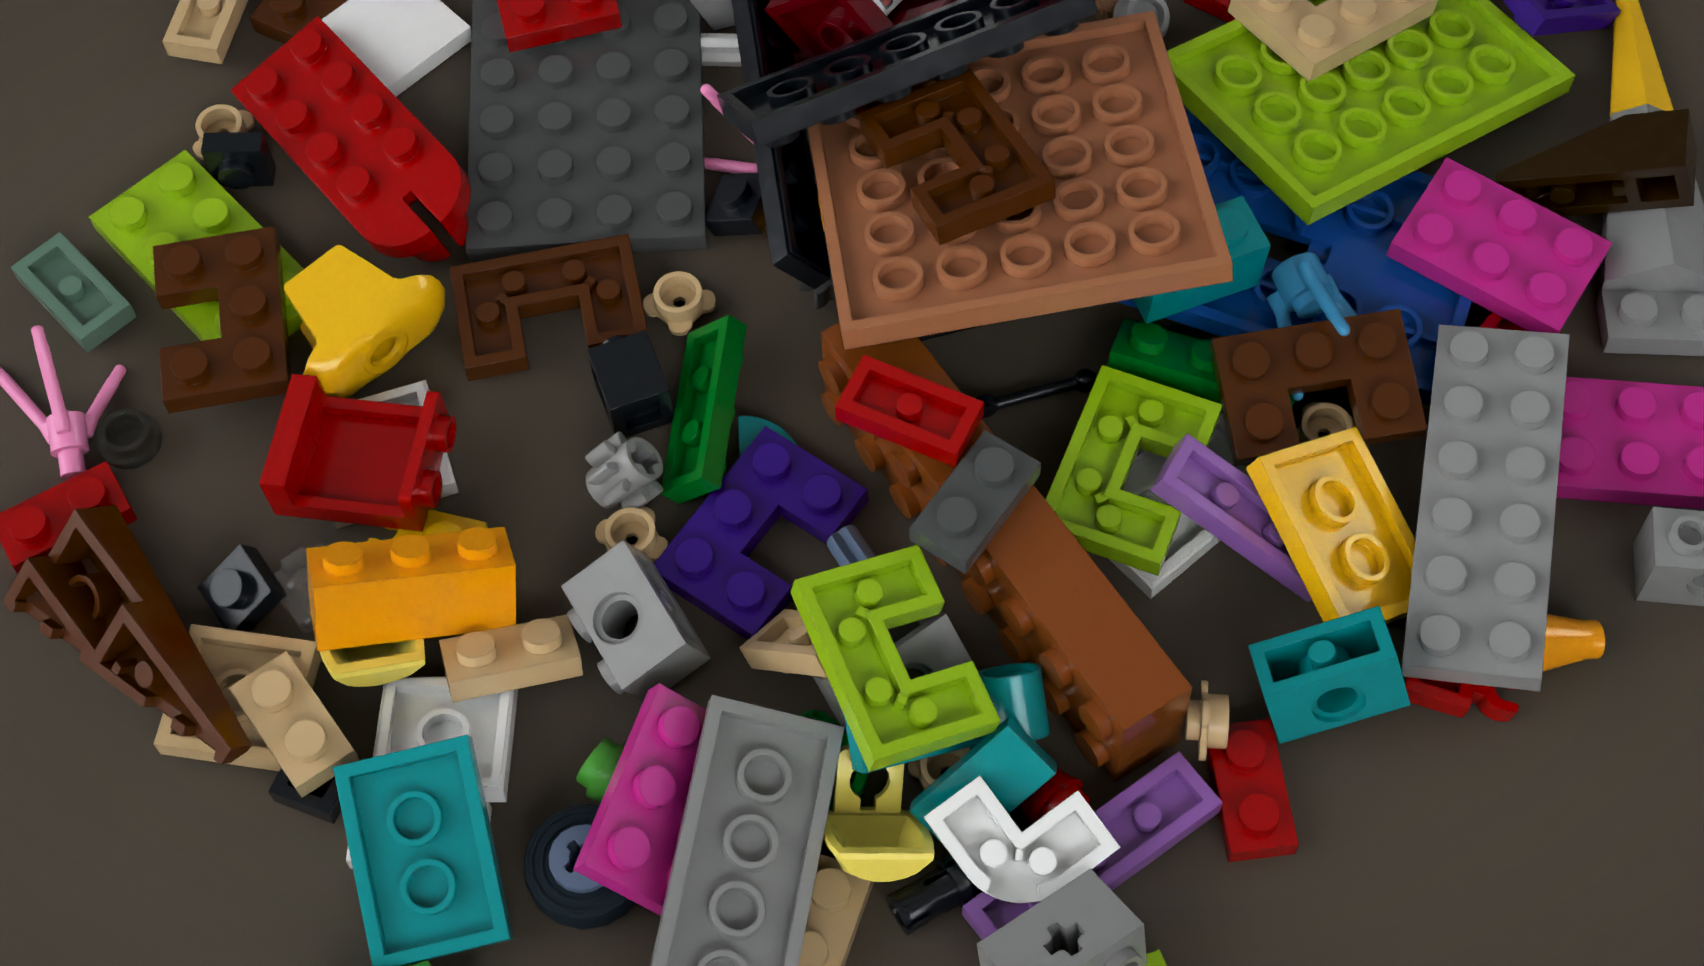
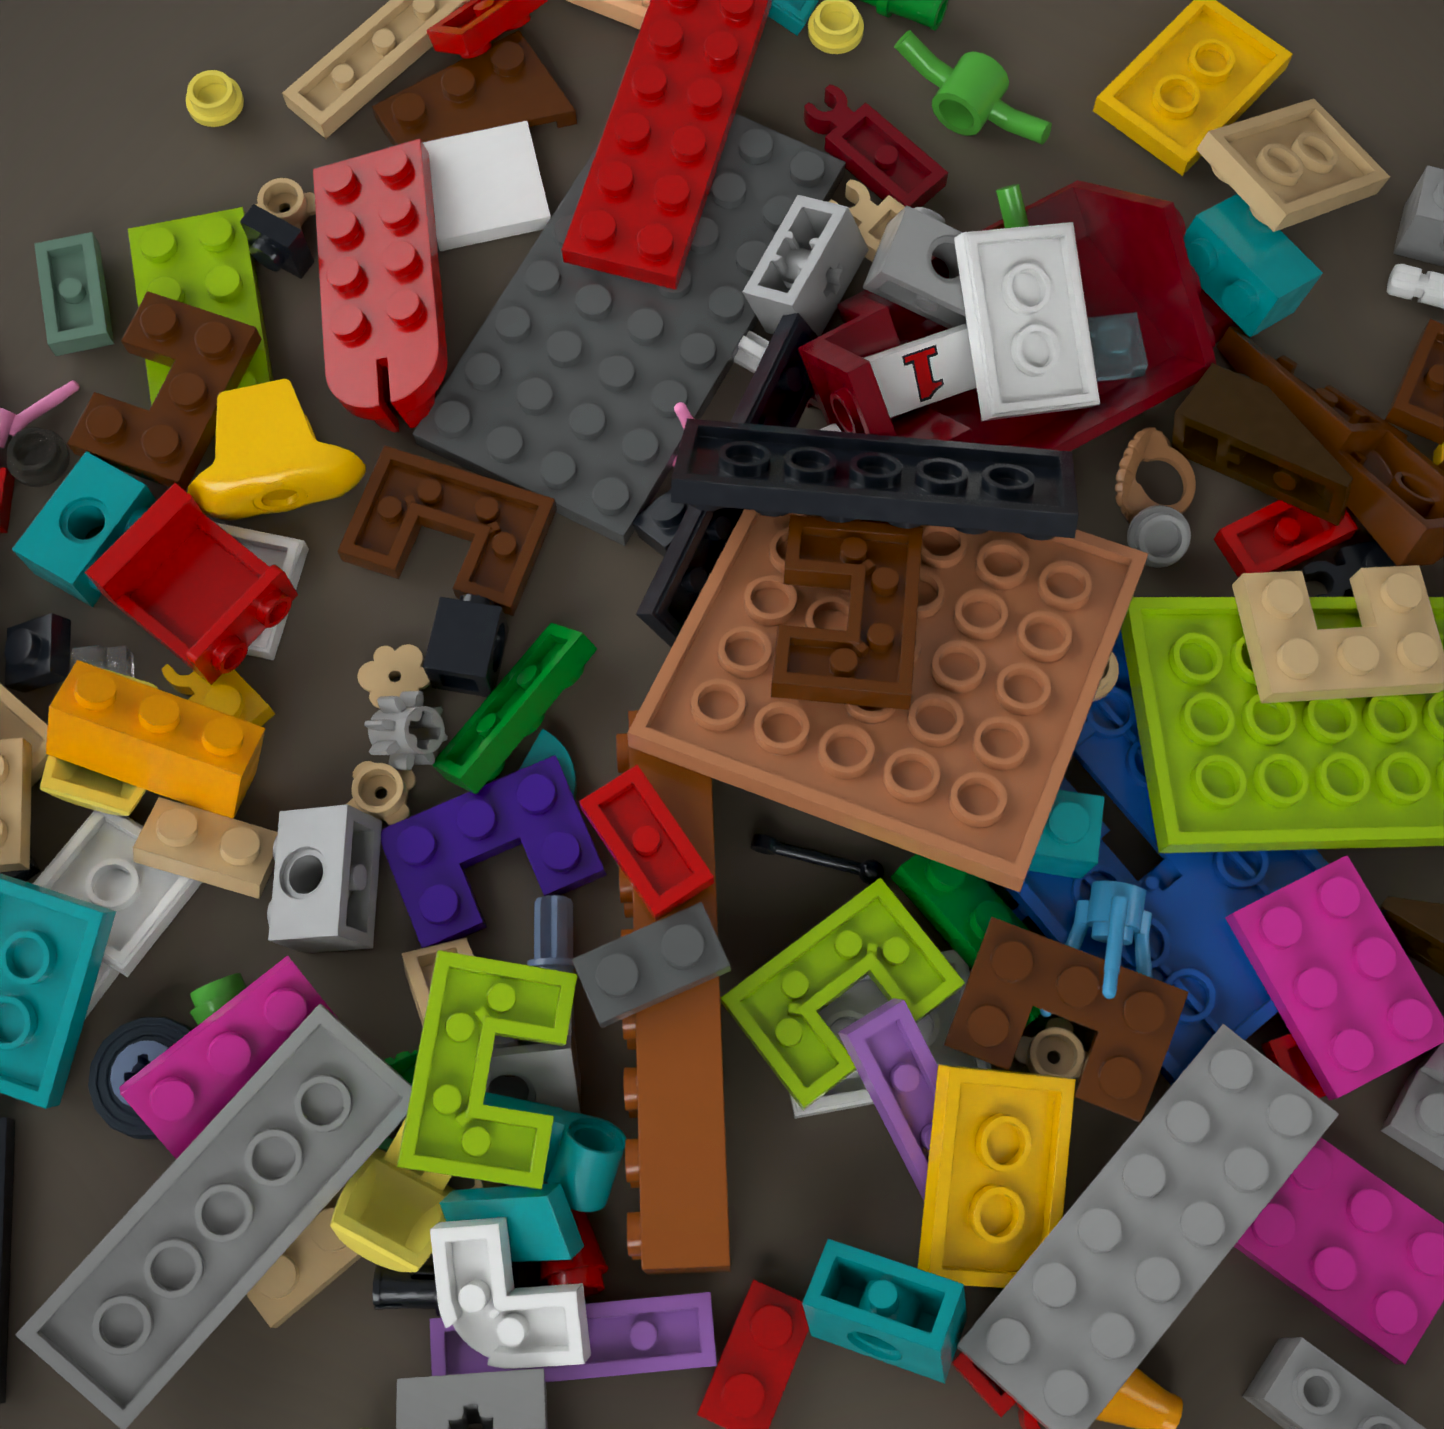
camera: 30 degrees right, 10 degrees up
(96, 79) = (214, 98): none -> light yellow plate
(210, 438) = (87, 498): none -> teal brick
(566, 439) = (387, 664): none -> tan plant
(674, 288) = (562, 571): tan plate -> none
(1208, 721) = (749, 1283): tan plate -> none

